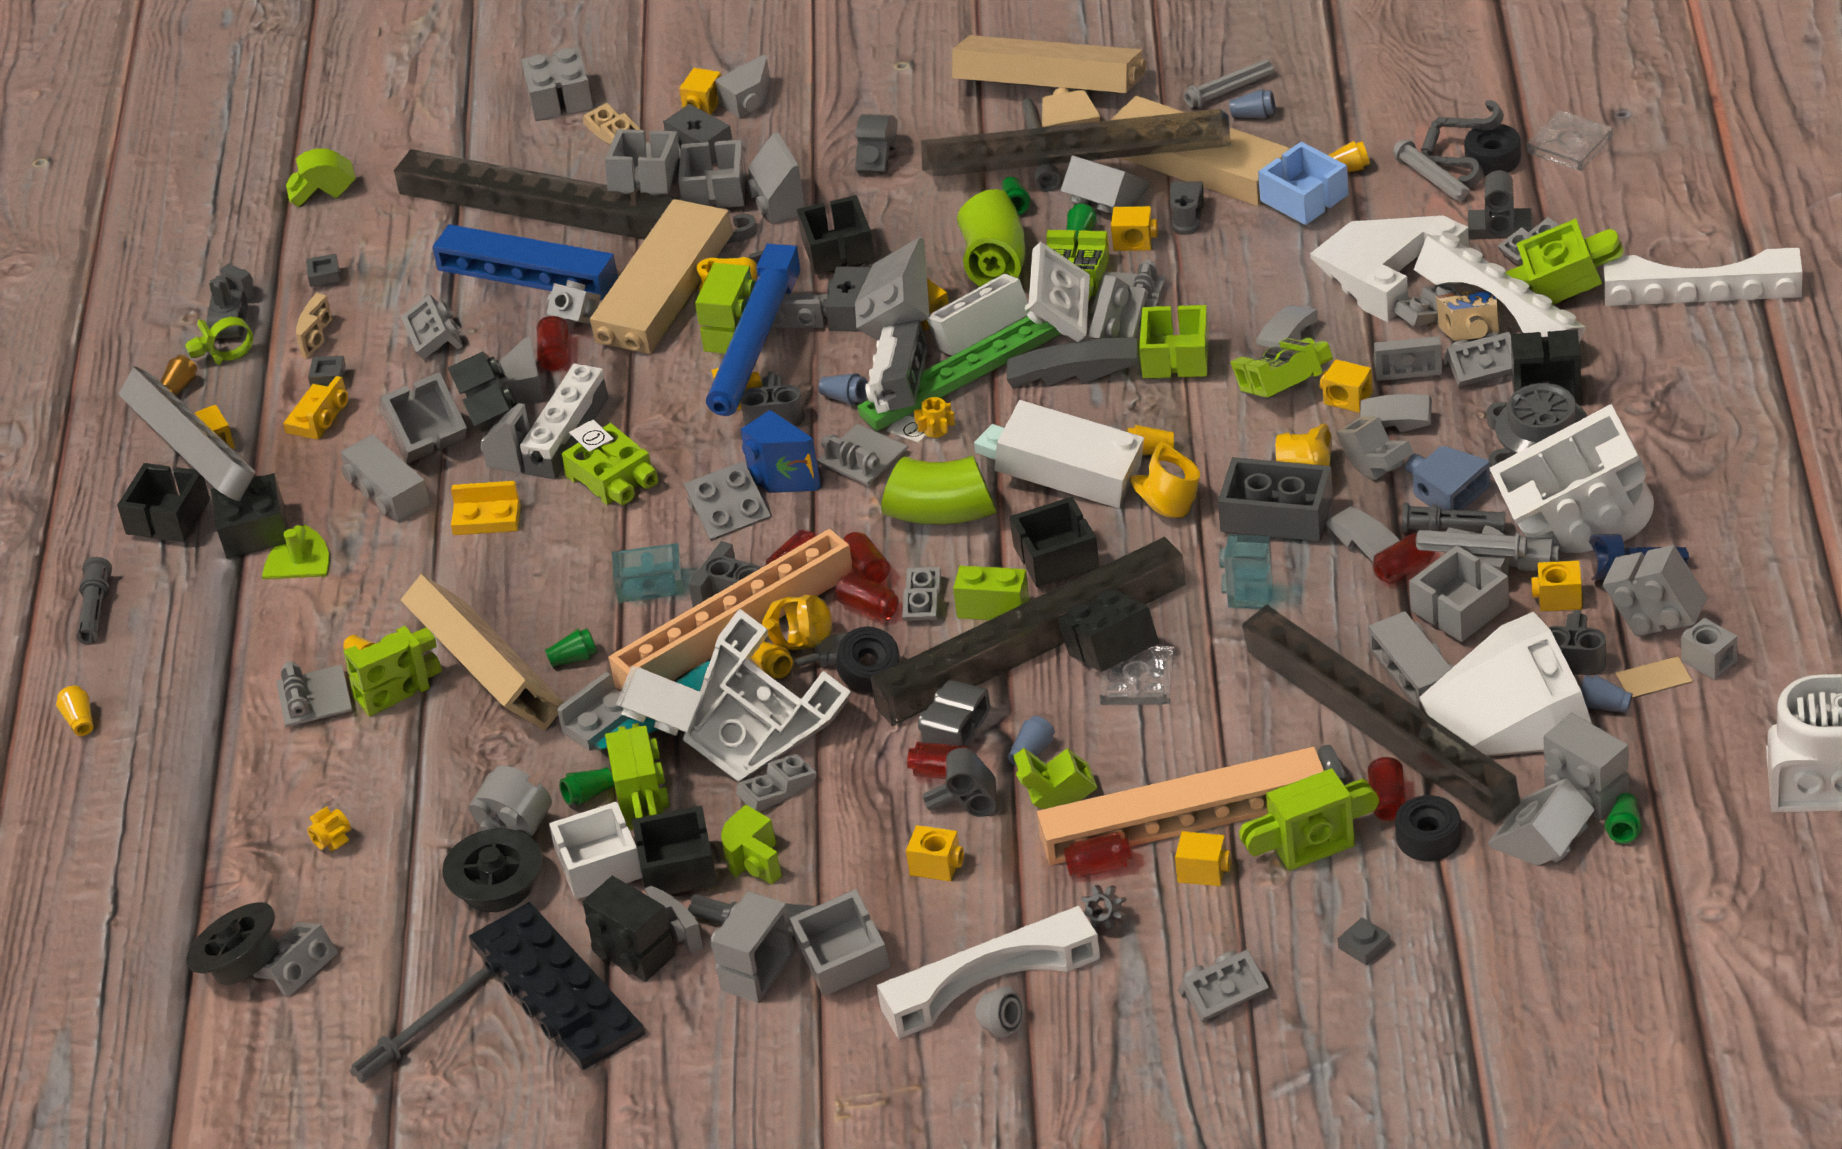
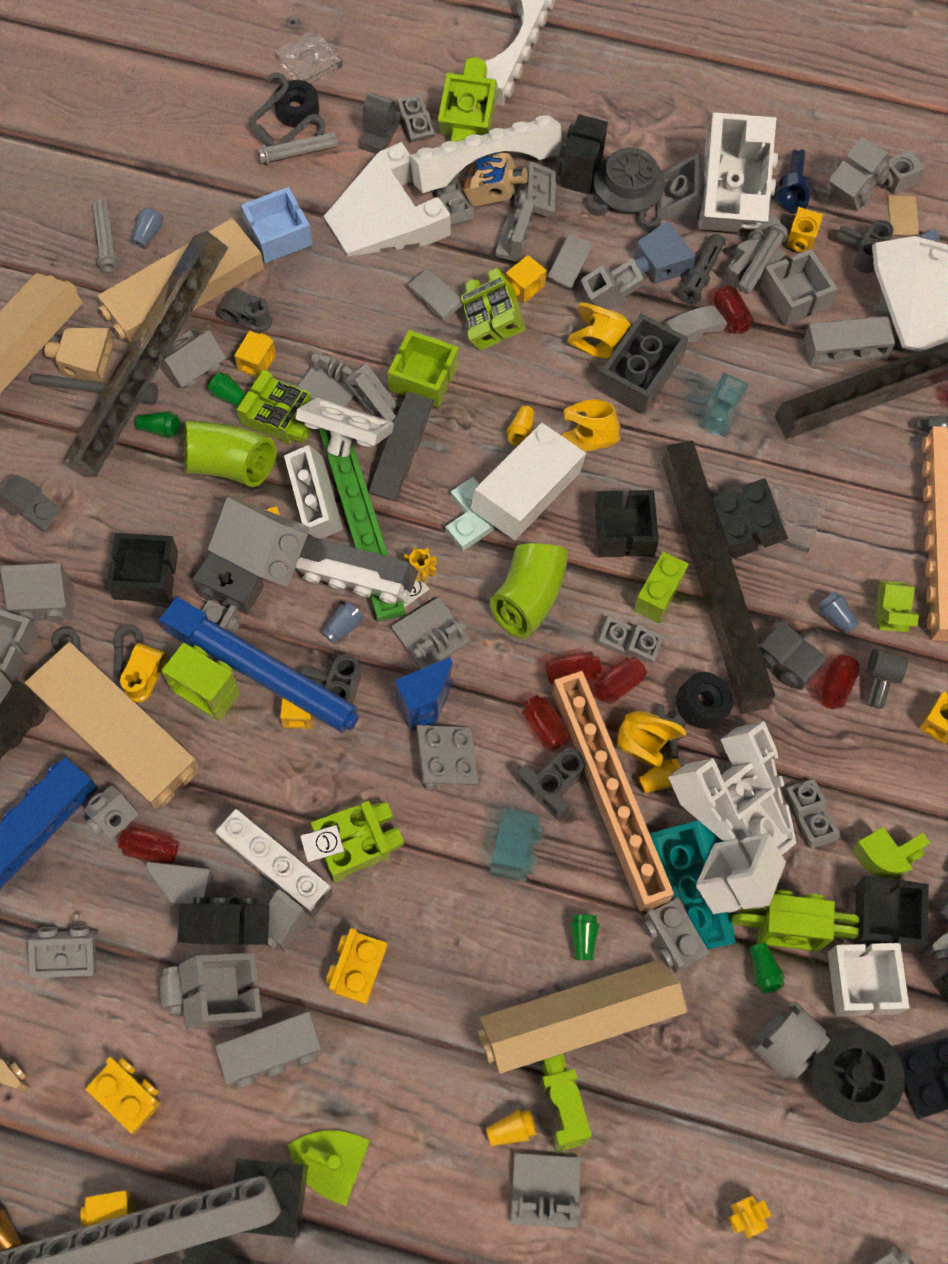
camera: 80 degrees left, 25 degrees up
(325, 368) = (72, 1070): dark grey plate -> none
(1352, 155) = (252, 186): yellow cone -> none

